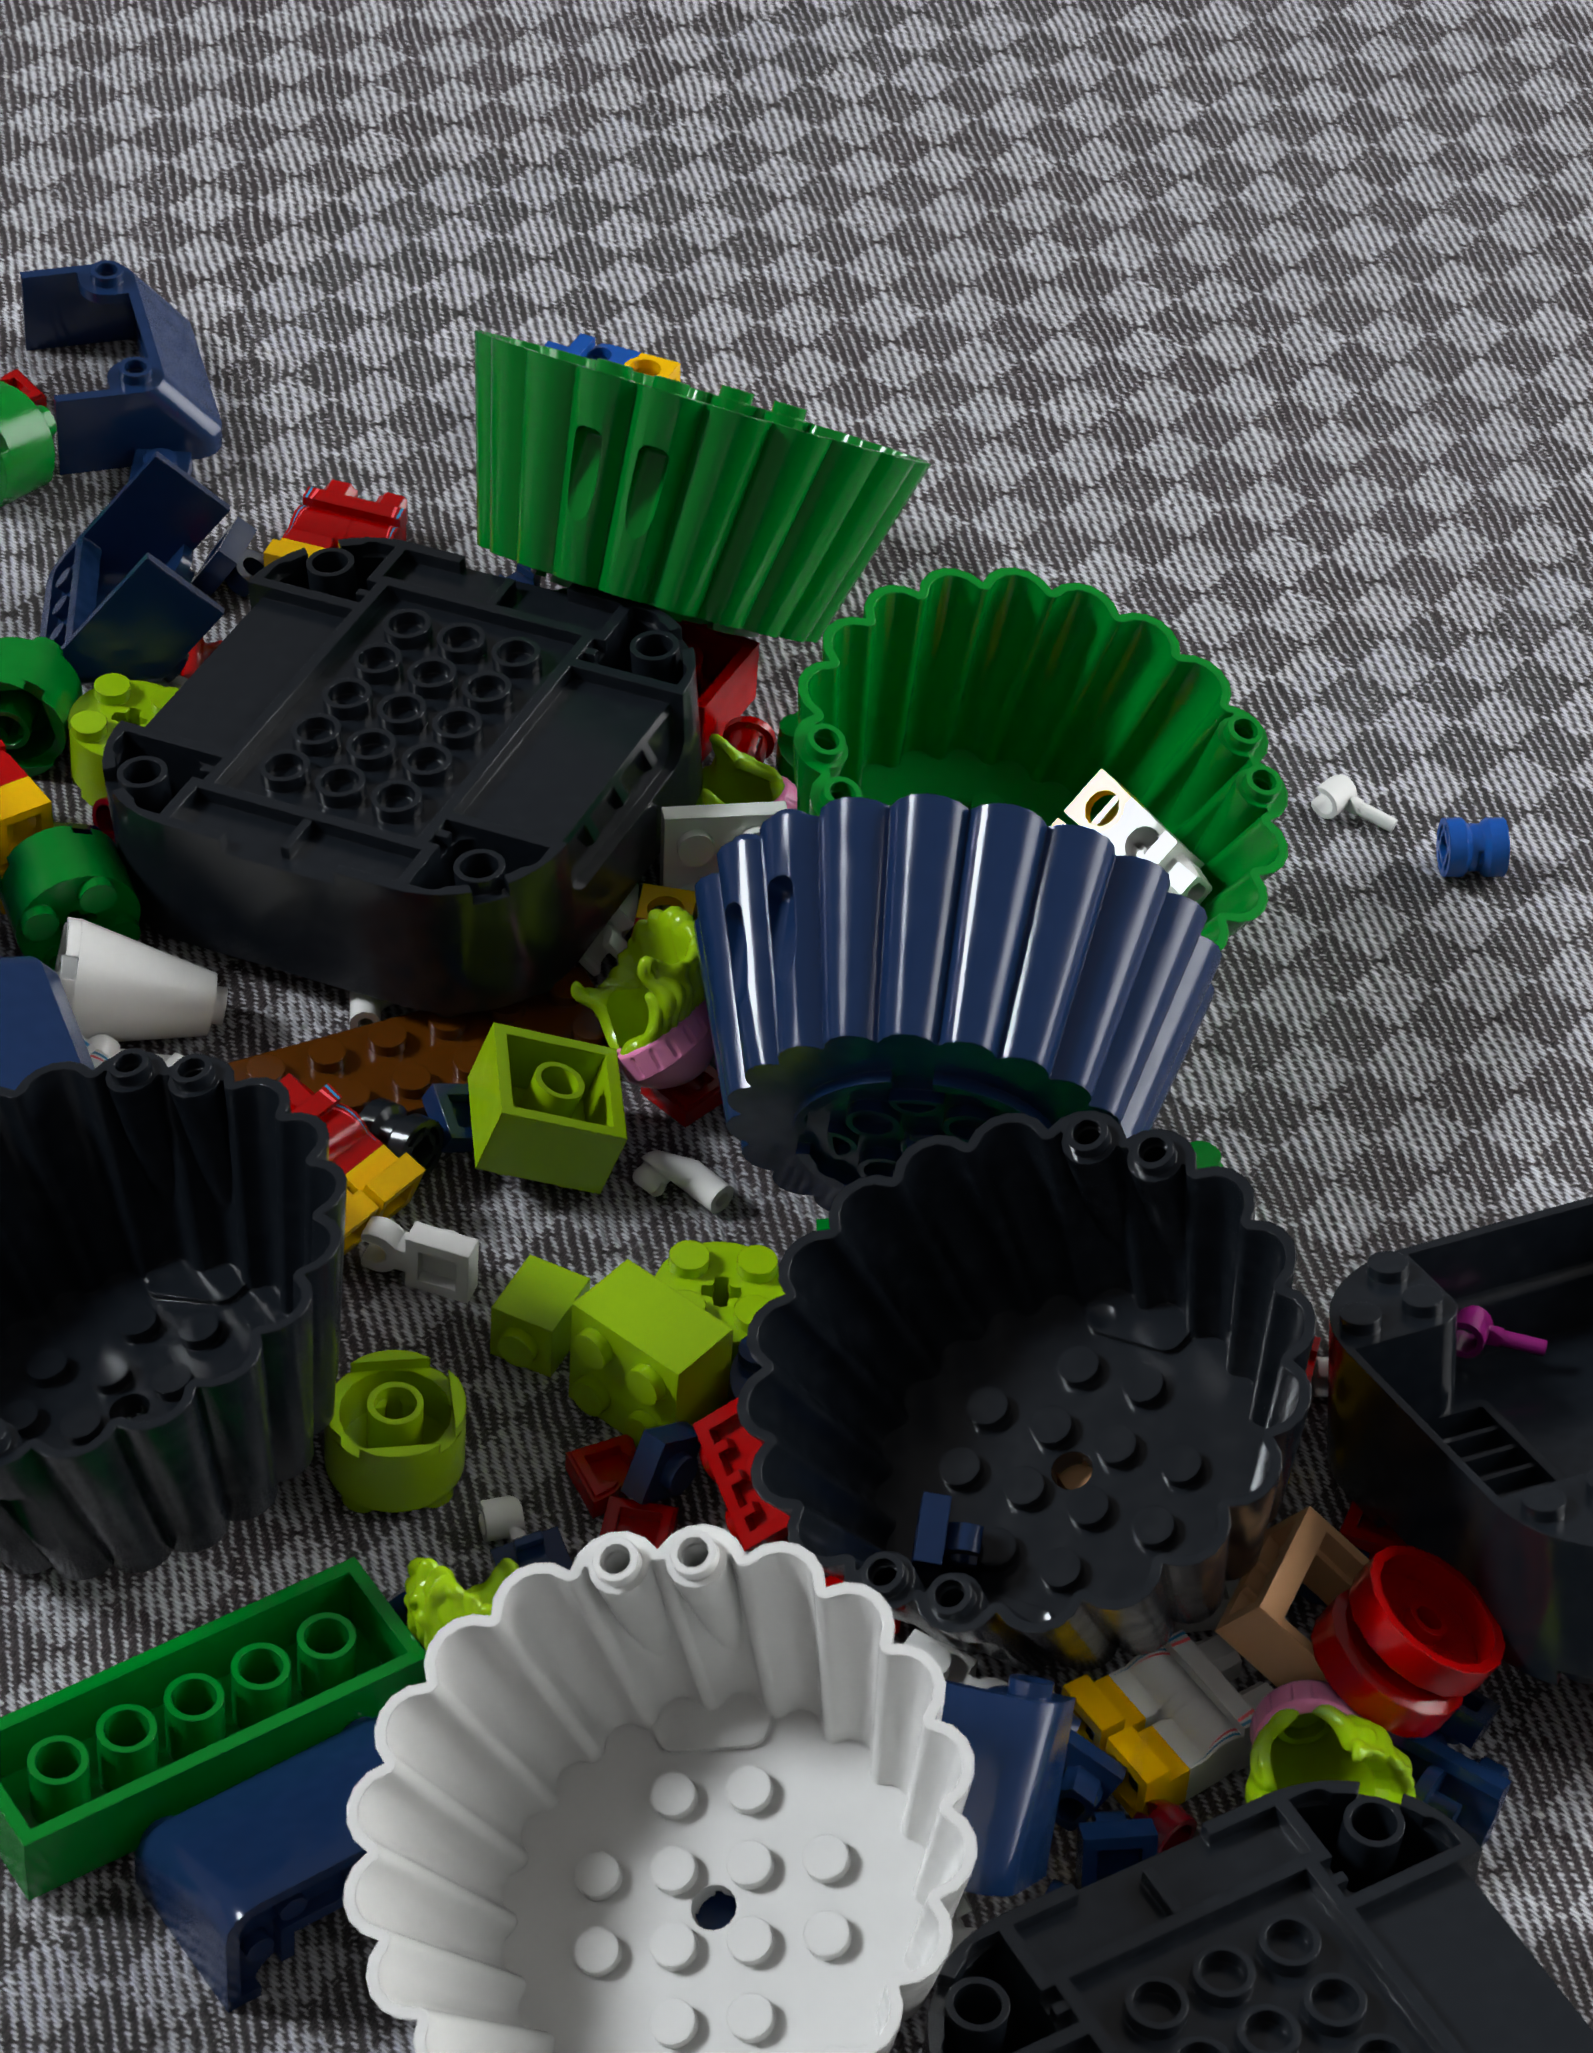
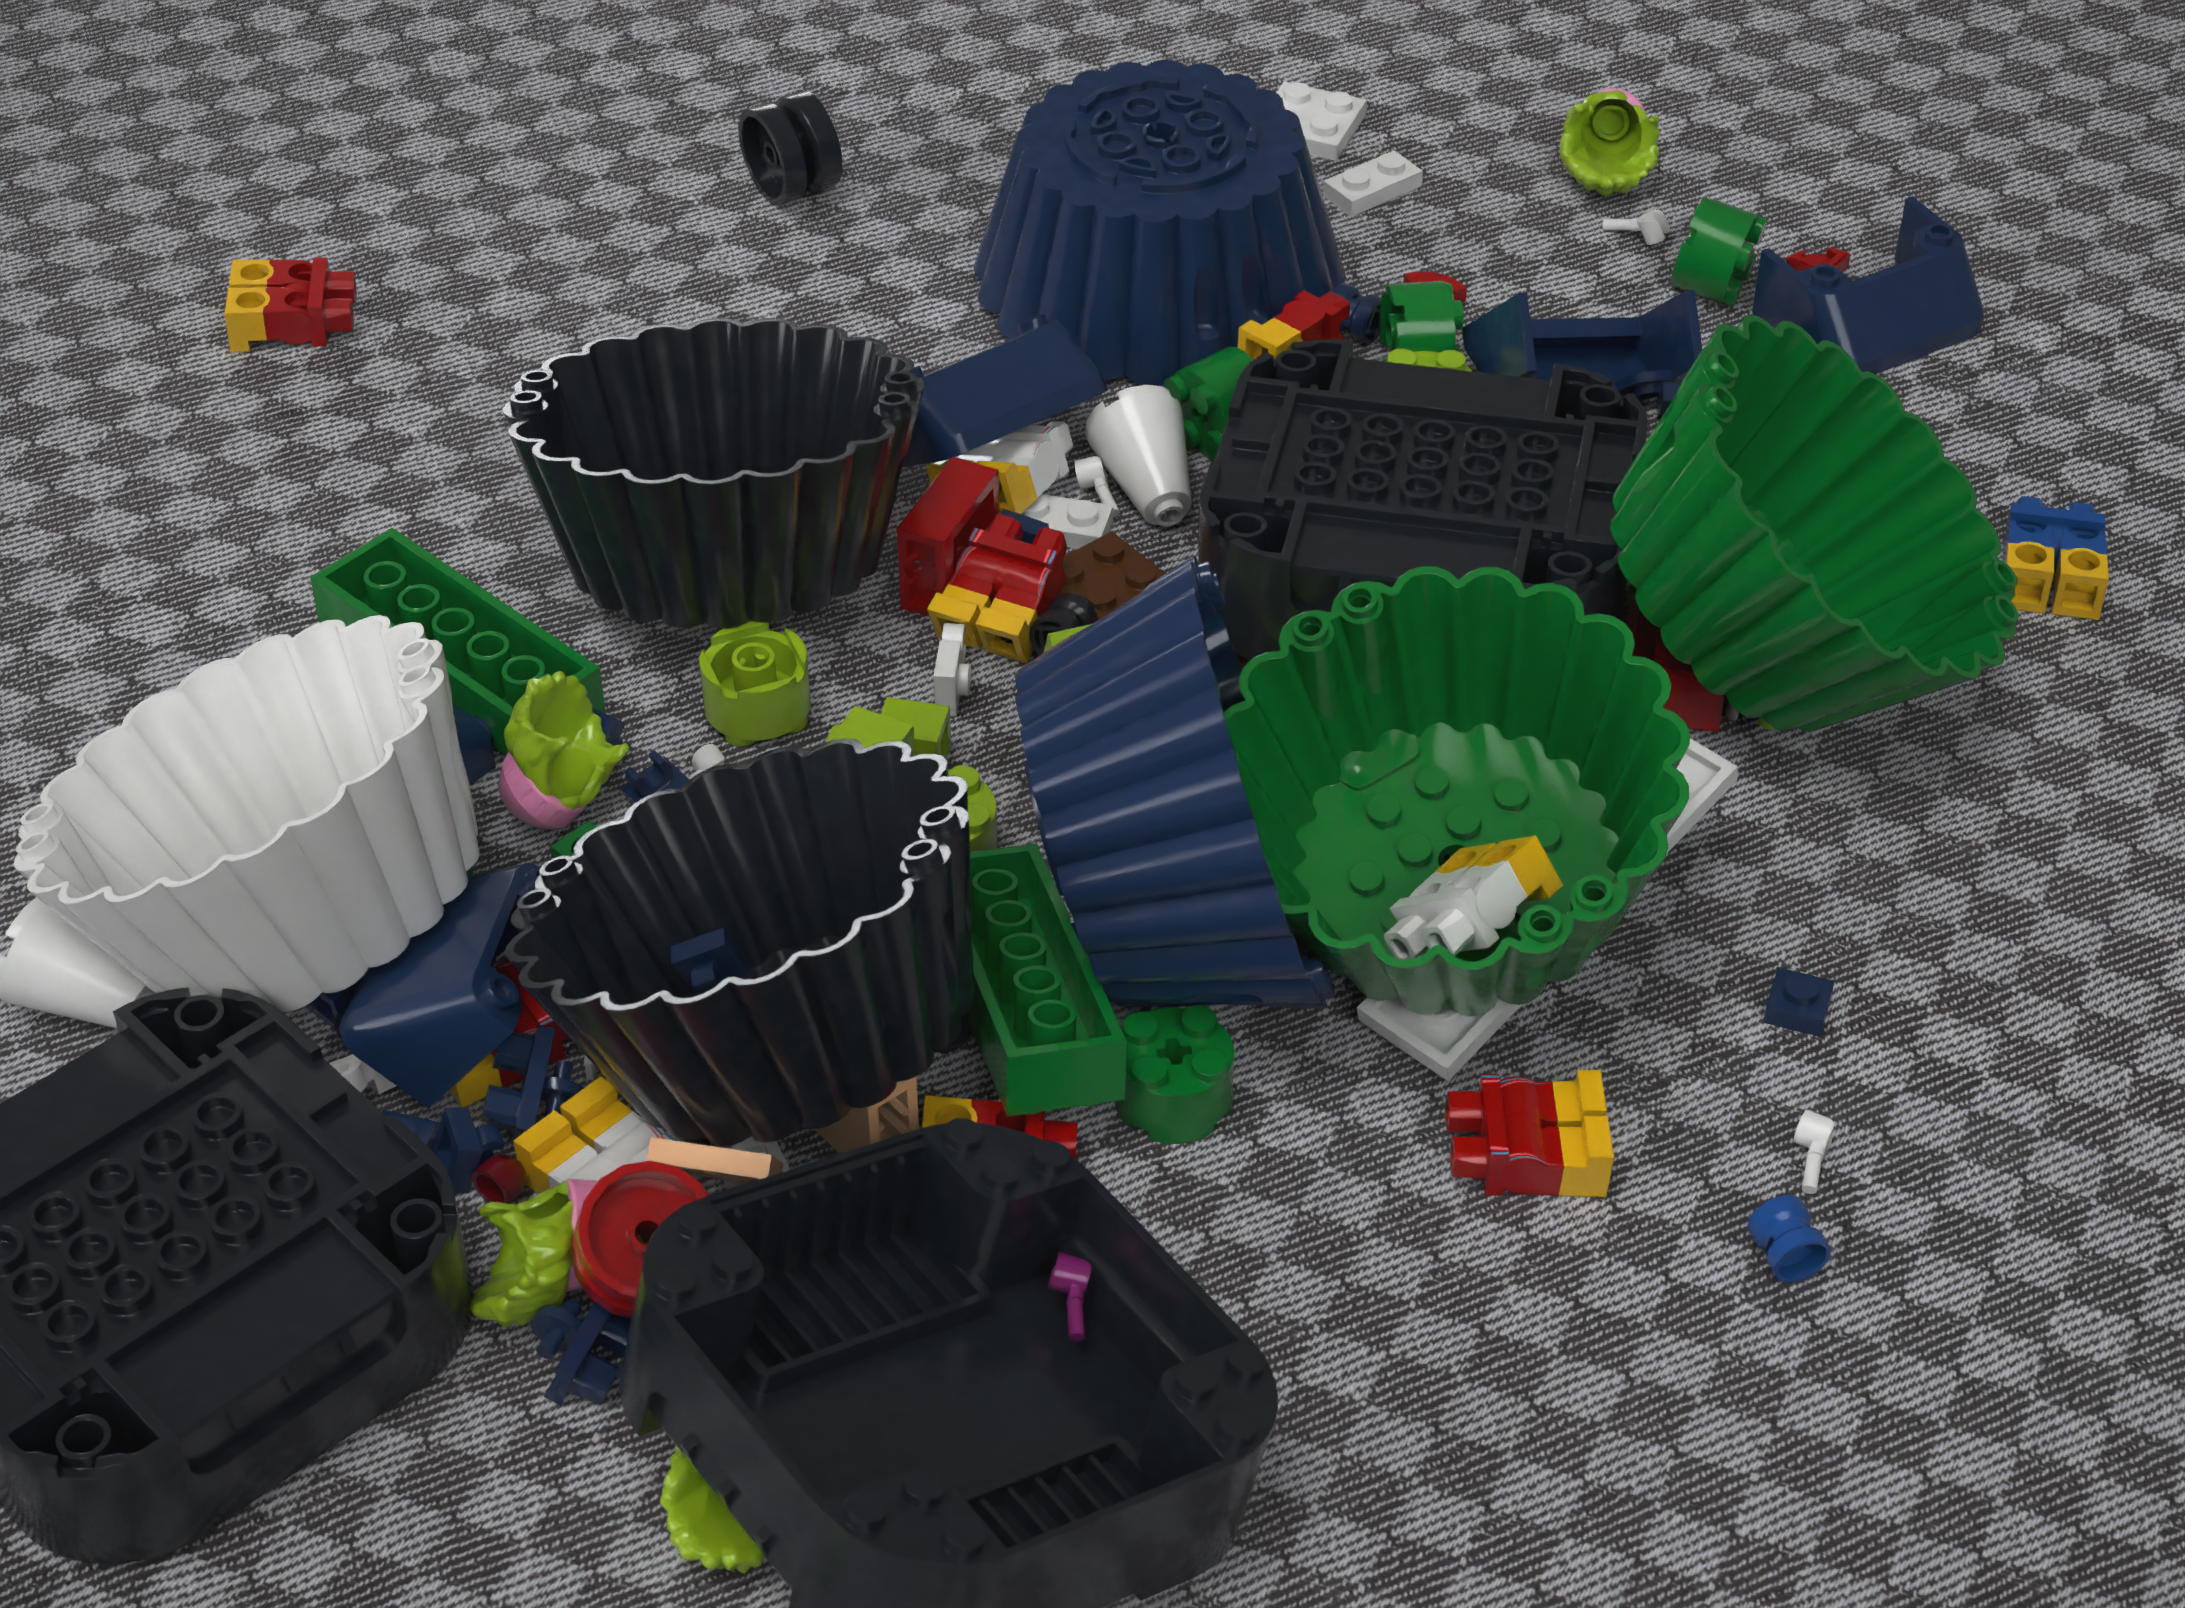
camera: 80 degrees right, 0 degrees up
(1299, 993) = (1533, 1135): none -> red hips

